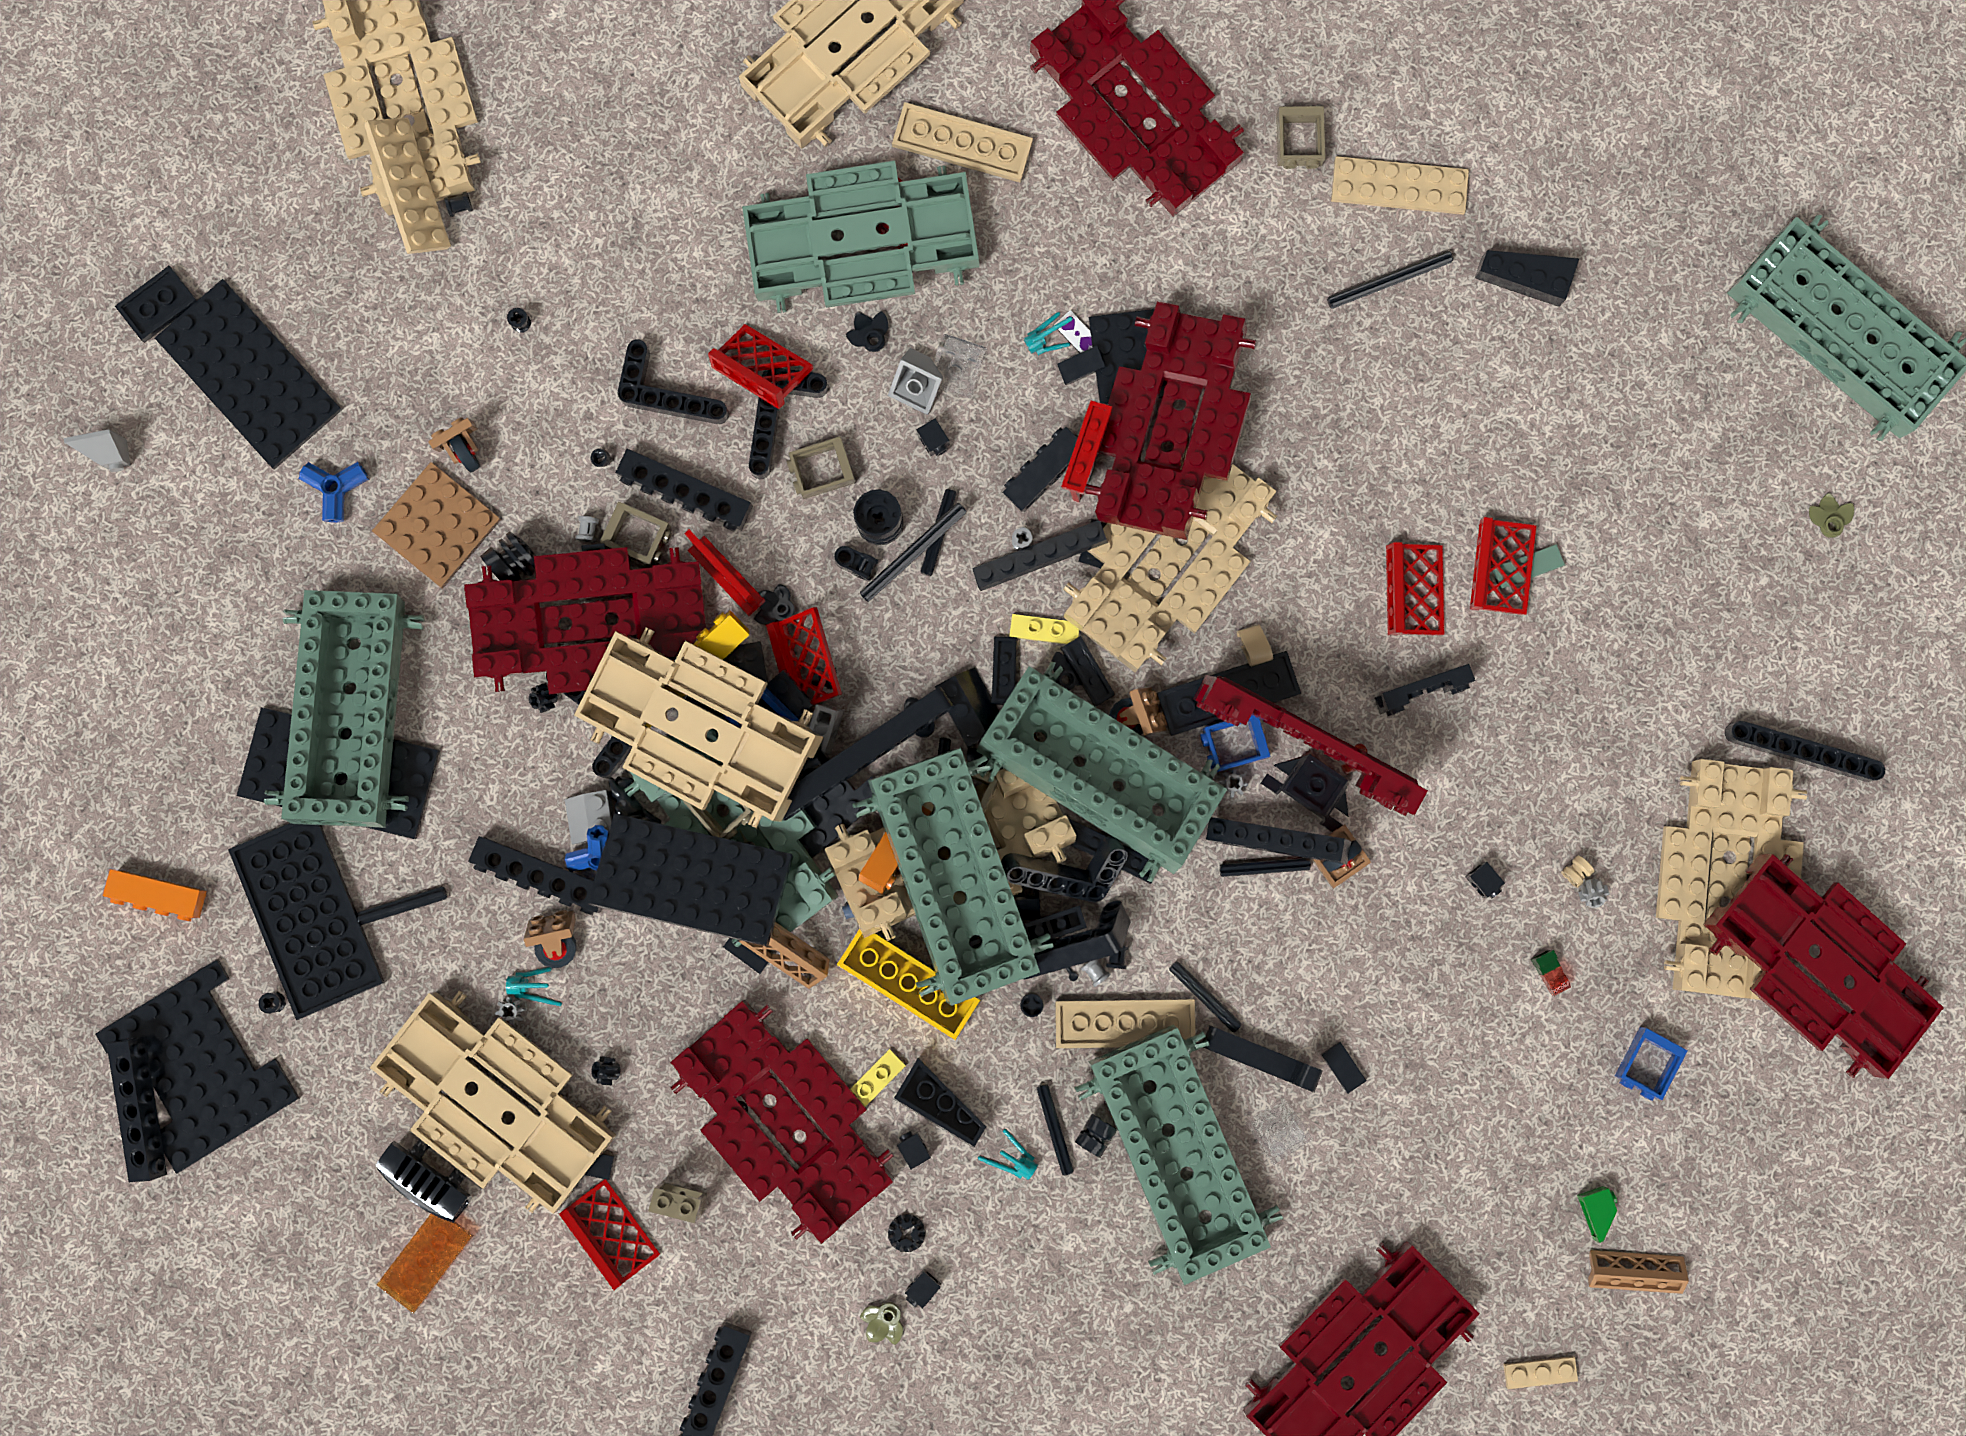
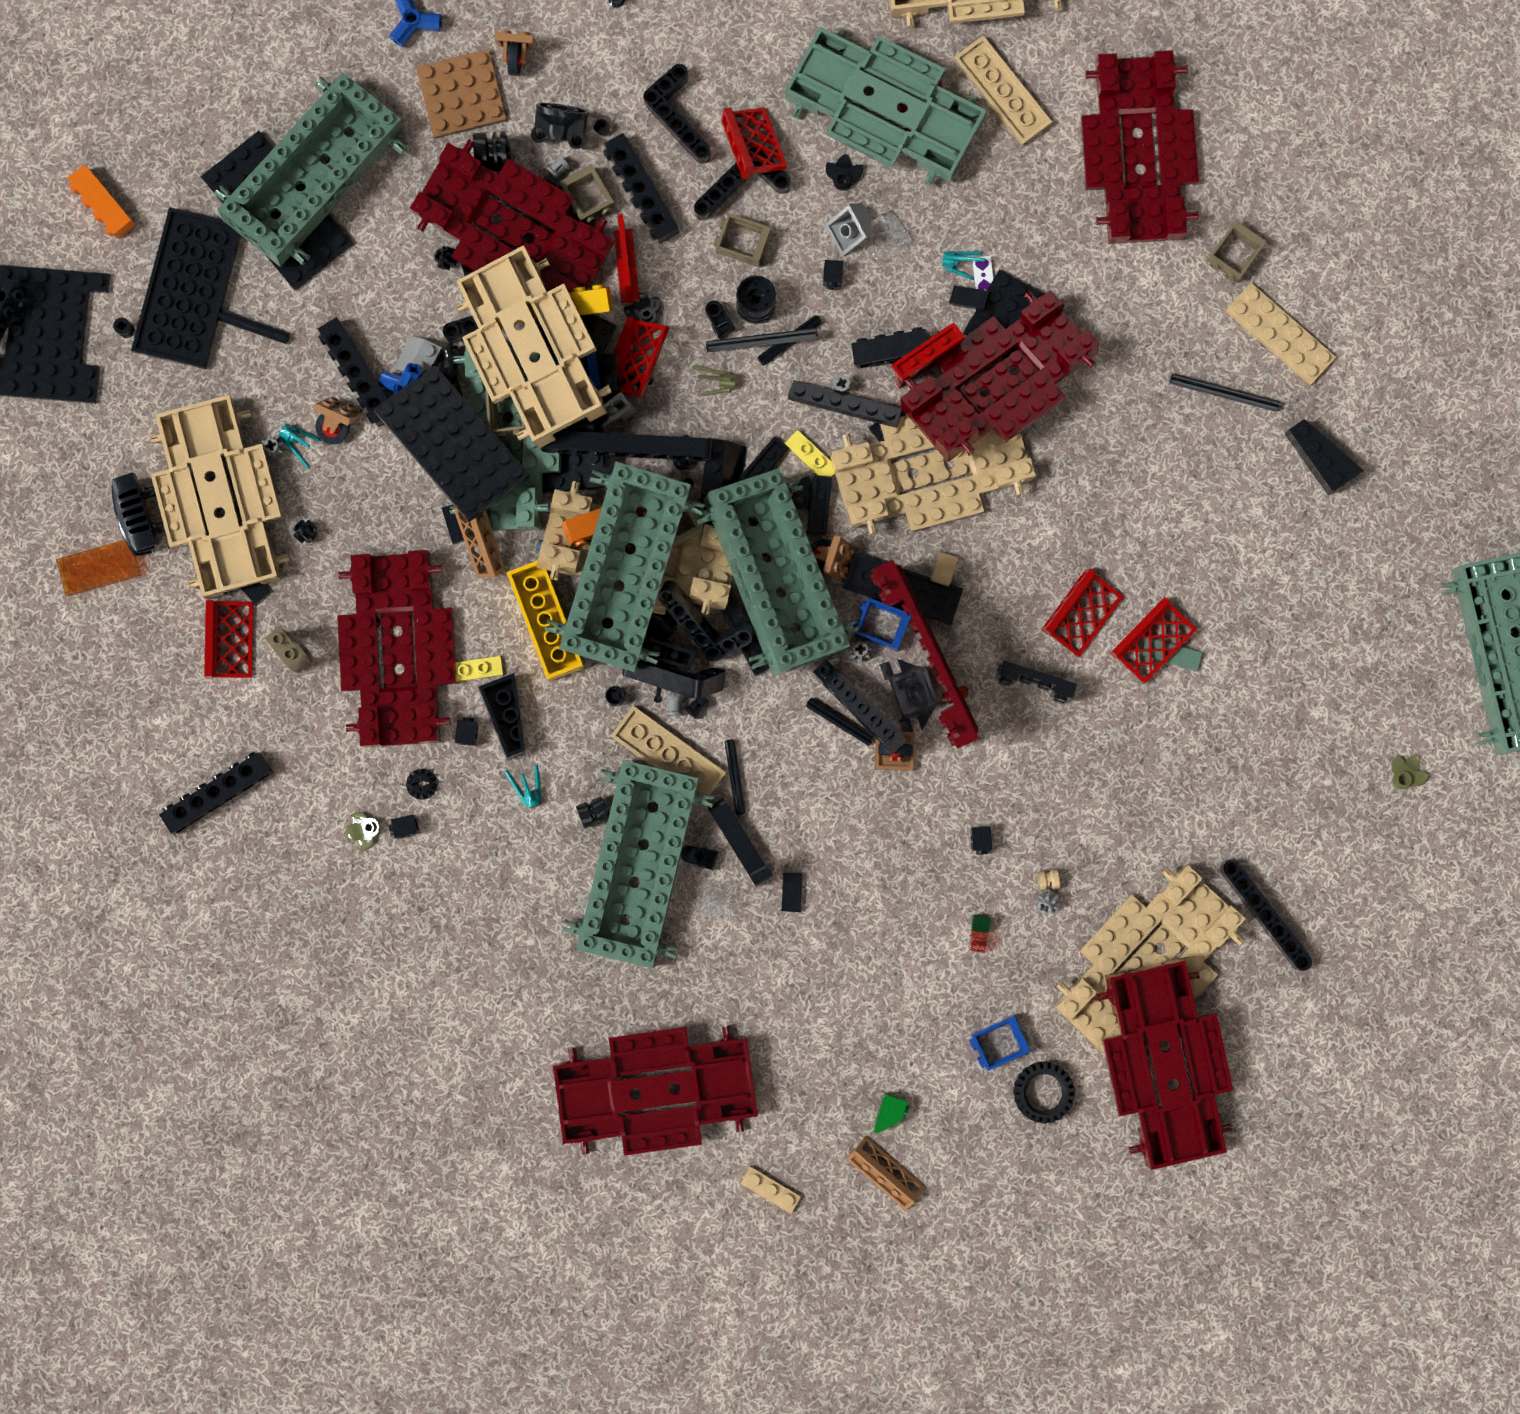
camera: 40 degrees right, 0 degrees up
(557, 483) = (560, 123): none -> black piece
(907, 617) = (725, 380): none -> olive plant
(1055, 1130) = (569, 789): black axle -> none
(1232, 1100) = (699, 856): none -> black piece
(1753, 1072) = (1060, 1109): none -> black tyre

